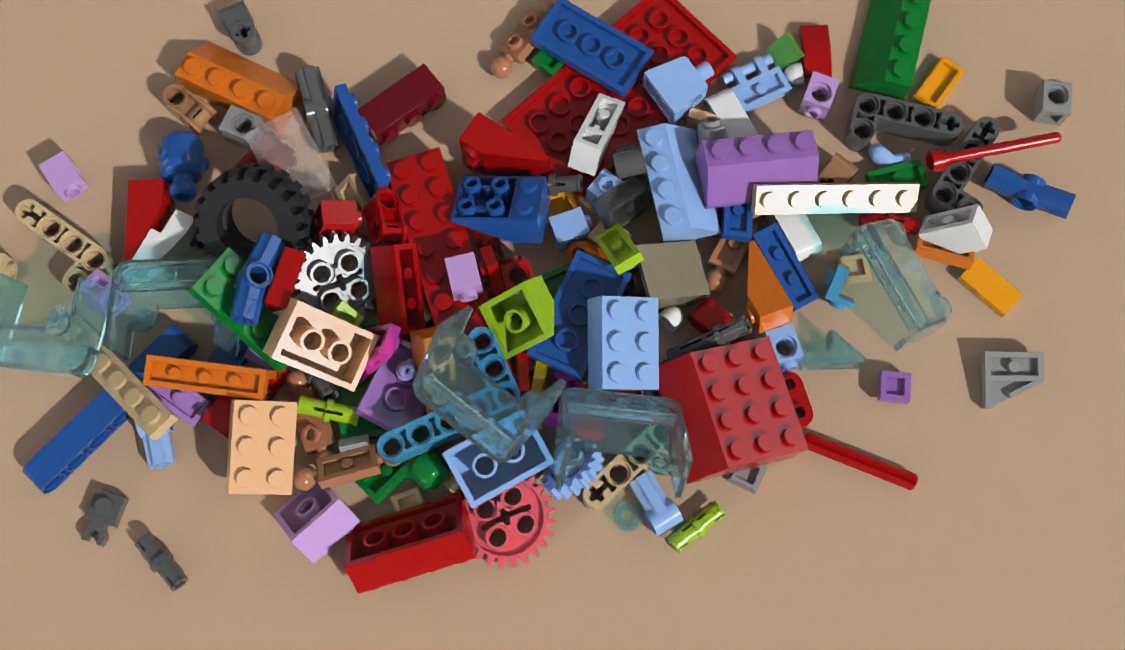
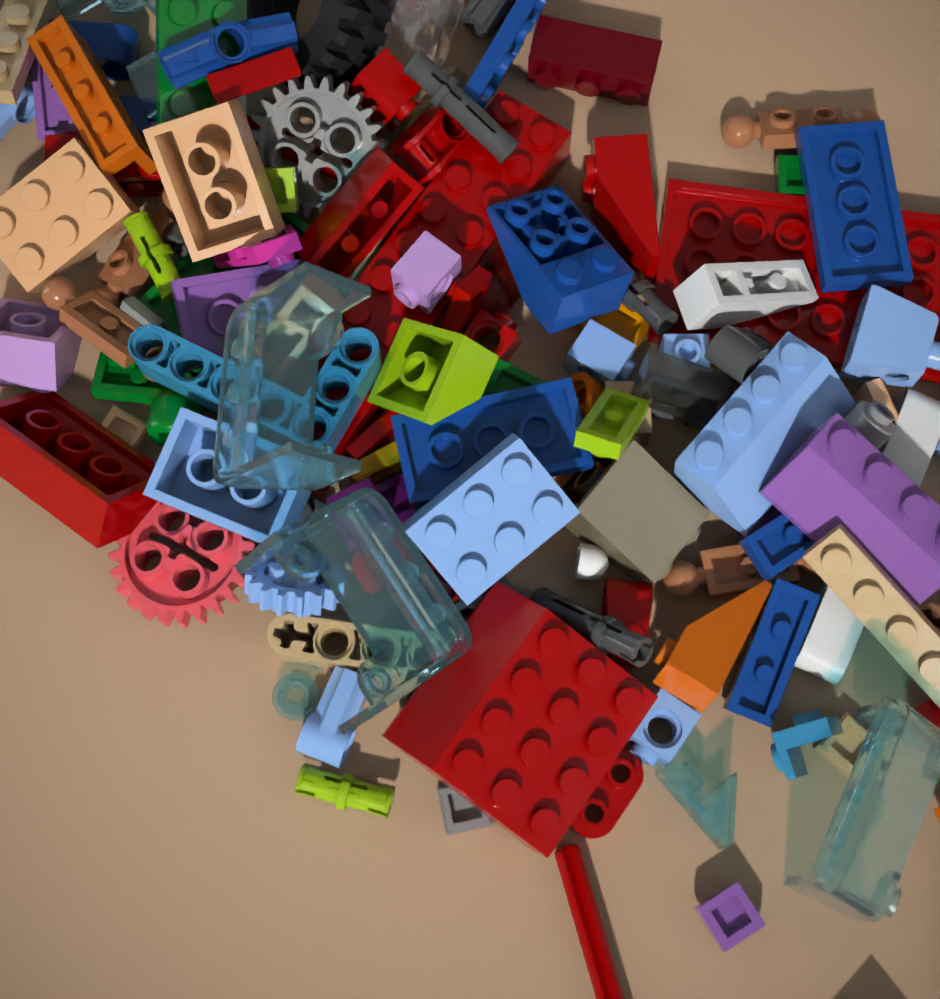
camera: 55 degrees right, 0 degrees up
(386, 188) = (456, 102): none -> dark grey pin

